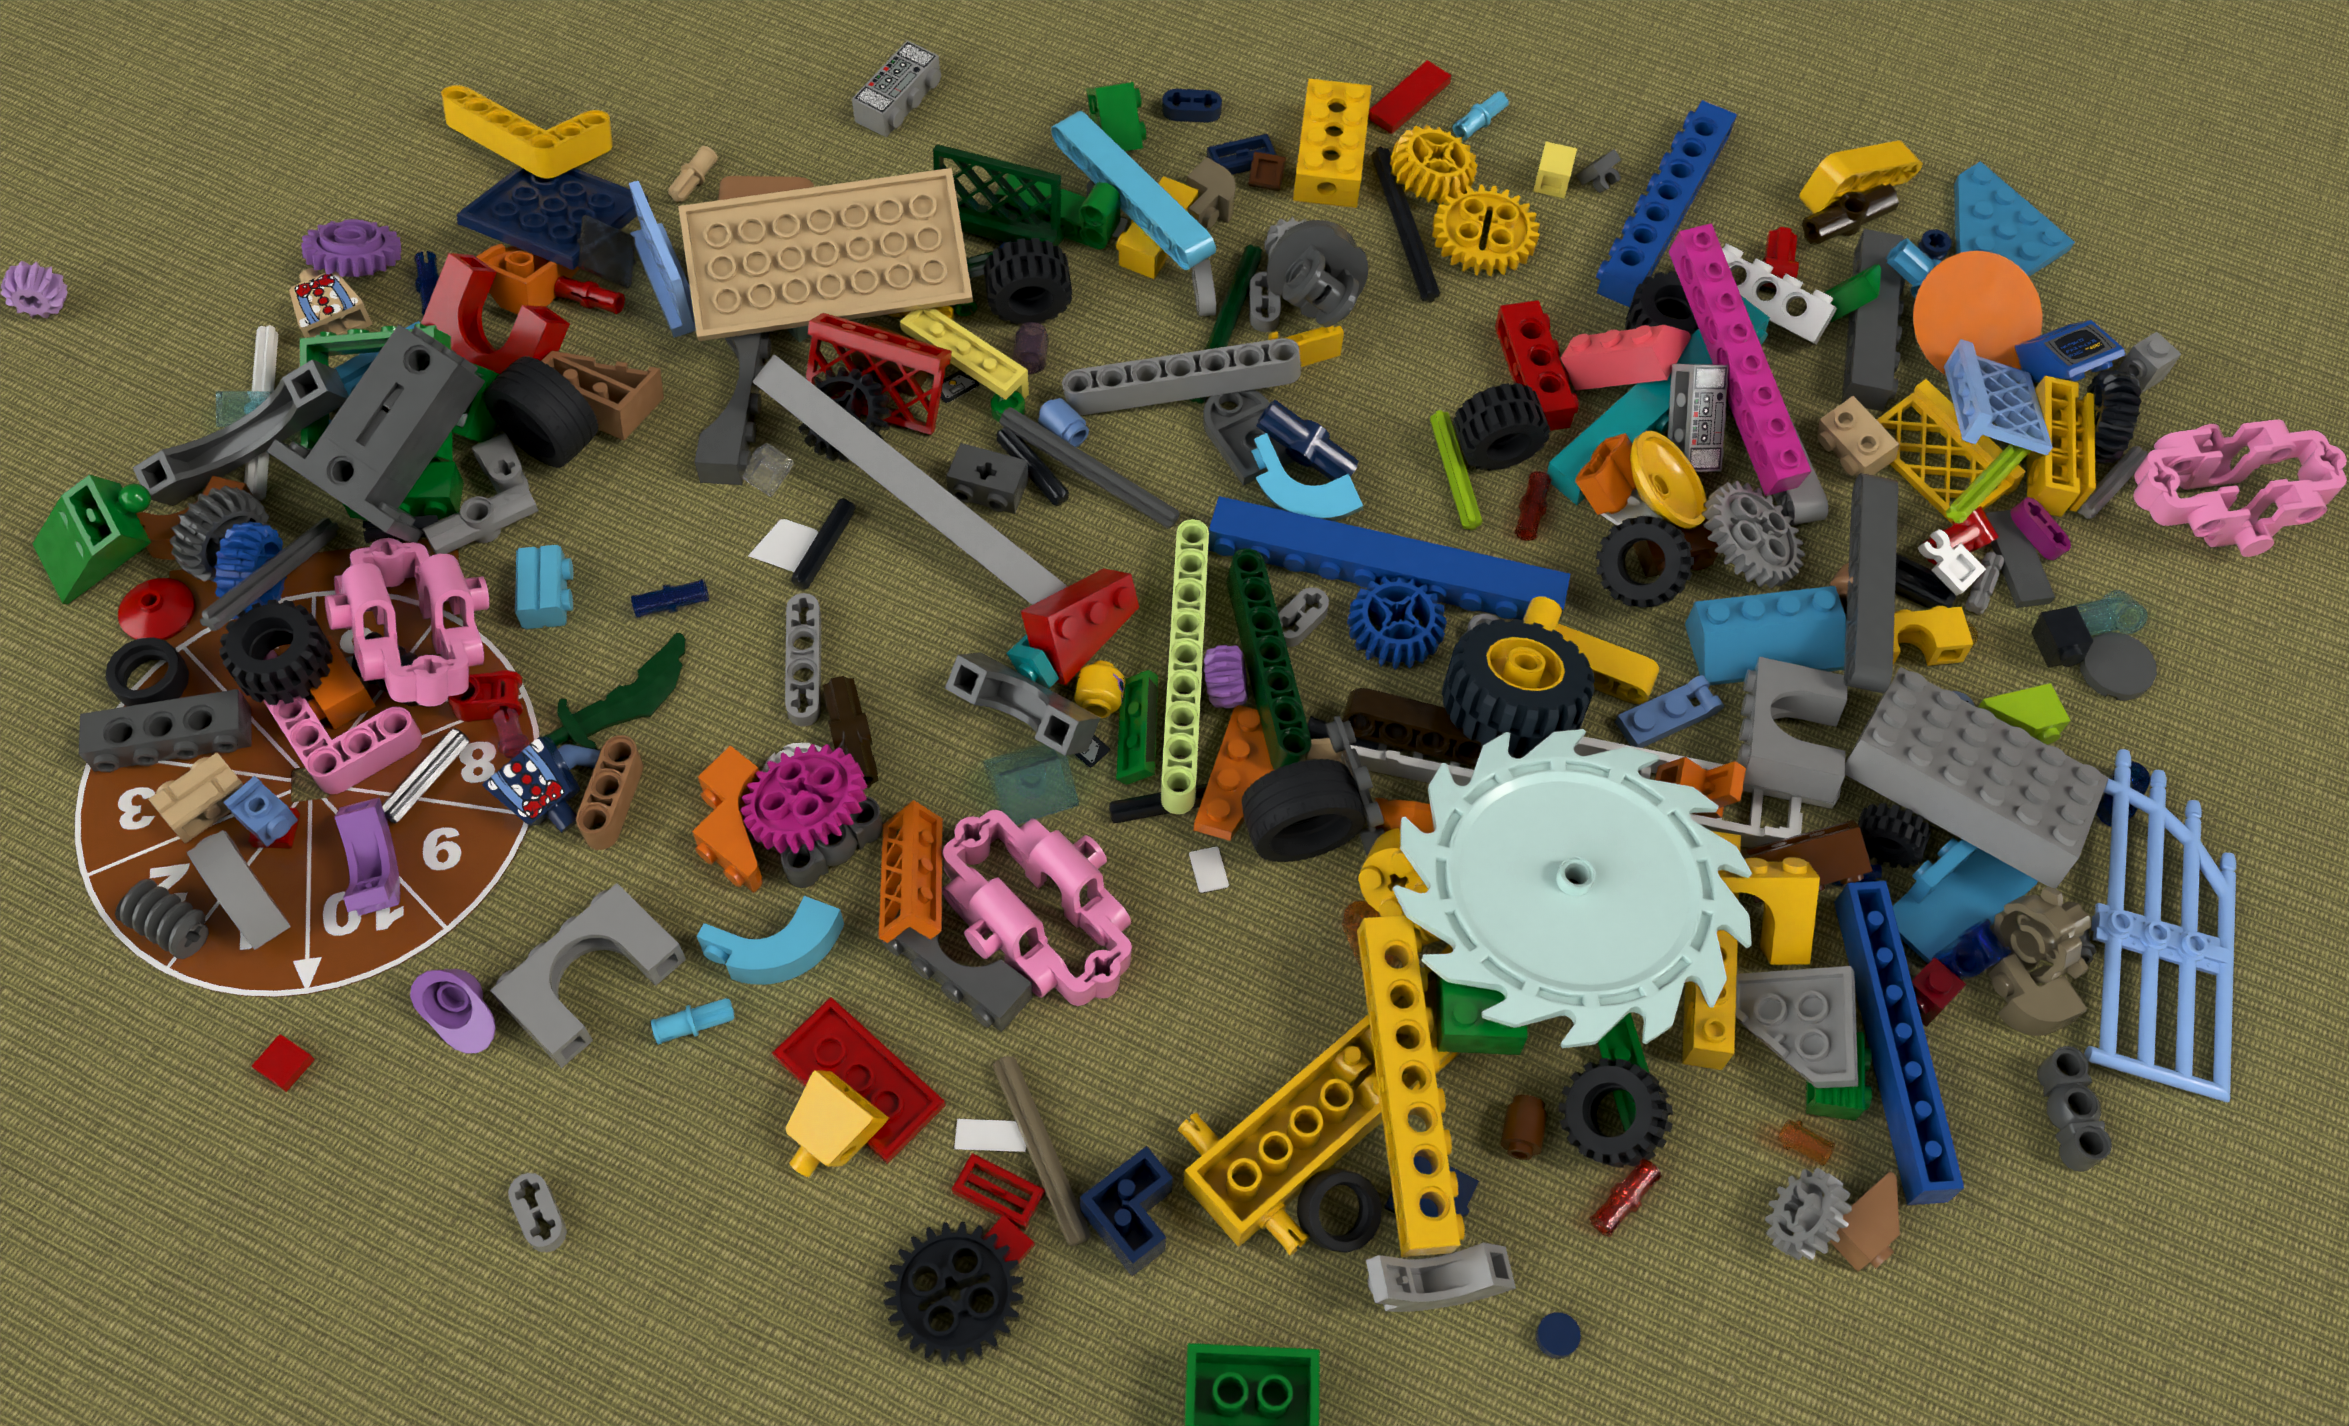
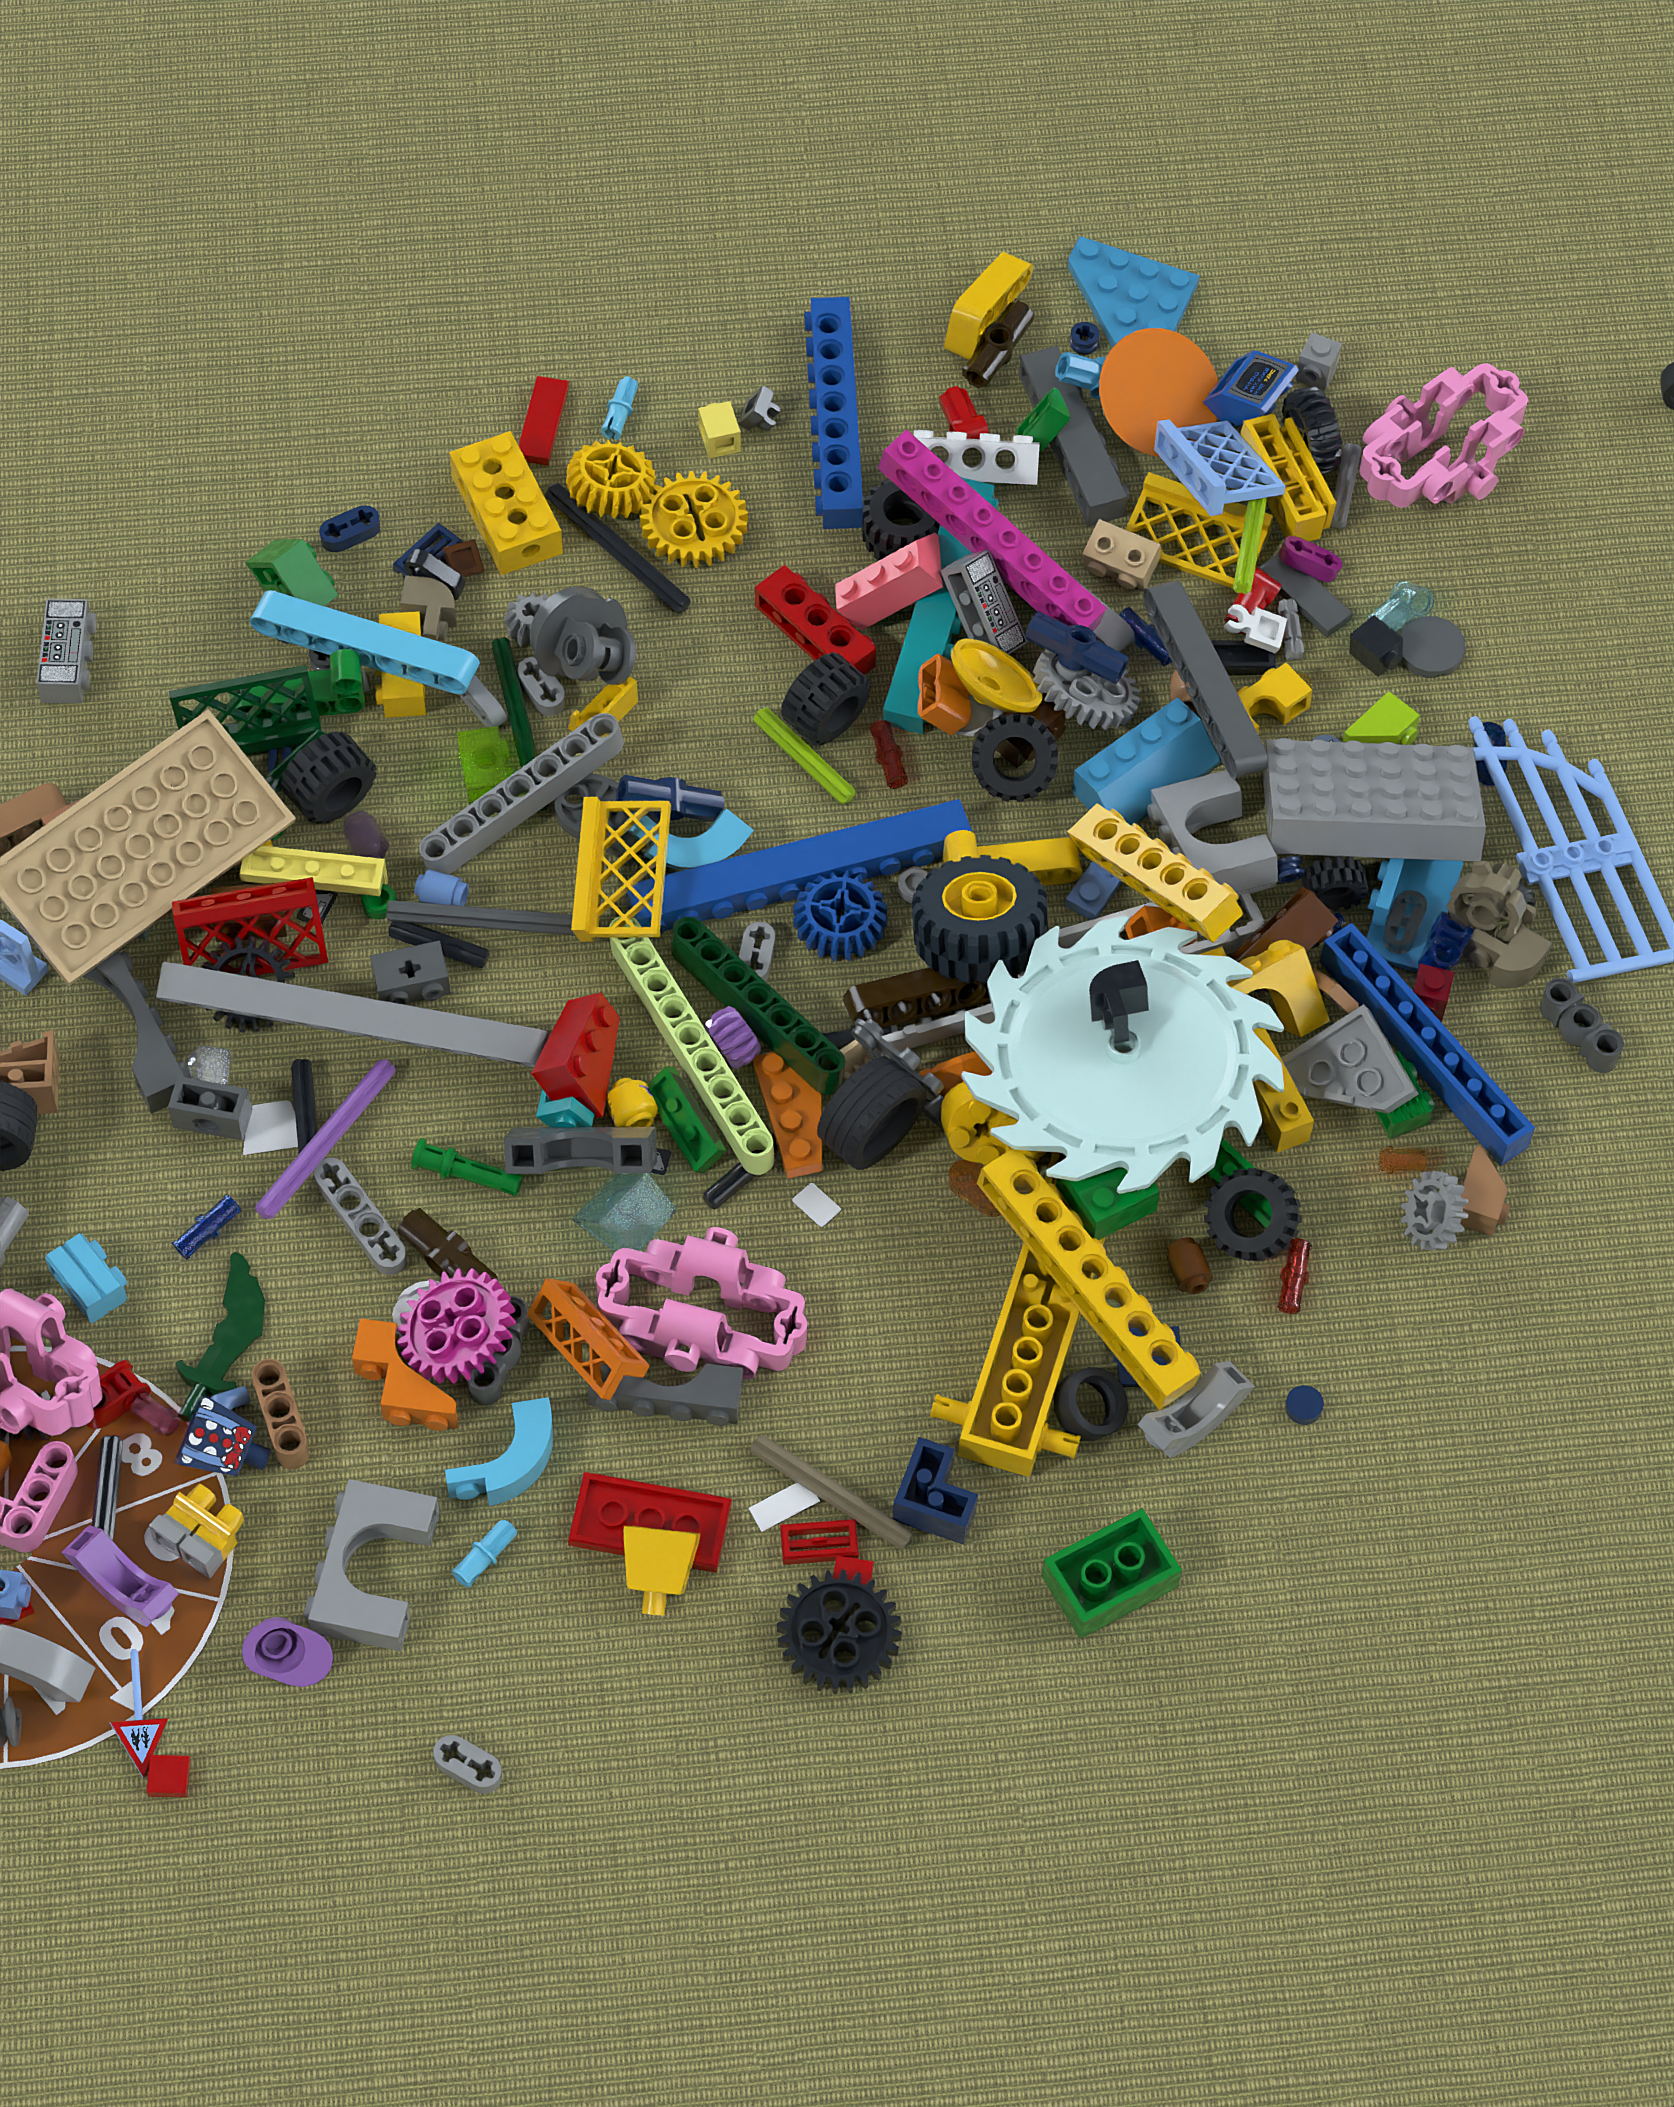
camera: 30 degrees left, 0 degrees up
(291, 1011) = (139, 1735): none -> piece
(461, 857) = (196, 1533): none -> hips
(741, 499) = (210, 1108): none -> dark grey brick
(816, 577) = (325, 1139): none -> medium lavender axle
(909, 655) = (450, 1163): none -> green pin
(1171, 331) = (479, 749): none -> clear neon green brick
(1193, 468) = (591, 871): none -> yellow fence
(1228, 156) = (426, 565): none -> black beam
(1598, 821) = (1115, 995): none -> black brick
(1715, 733) = (1156, 872): none -> yellow brick
(1762, 492) = (1077, 647): none -> dark blue piece
(1828, 937) = (1334, 992): none -> medium nougat tile
(1838, 520) = (1146, 636): none -> clear blue pin
(1851, 798) = (1289, 870): none -> dark blue bush
(1937, 902) = (1398, 919): none -> clear smoke beam

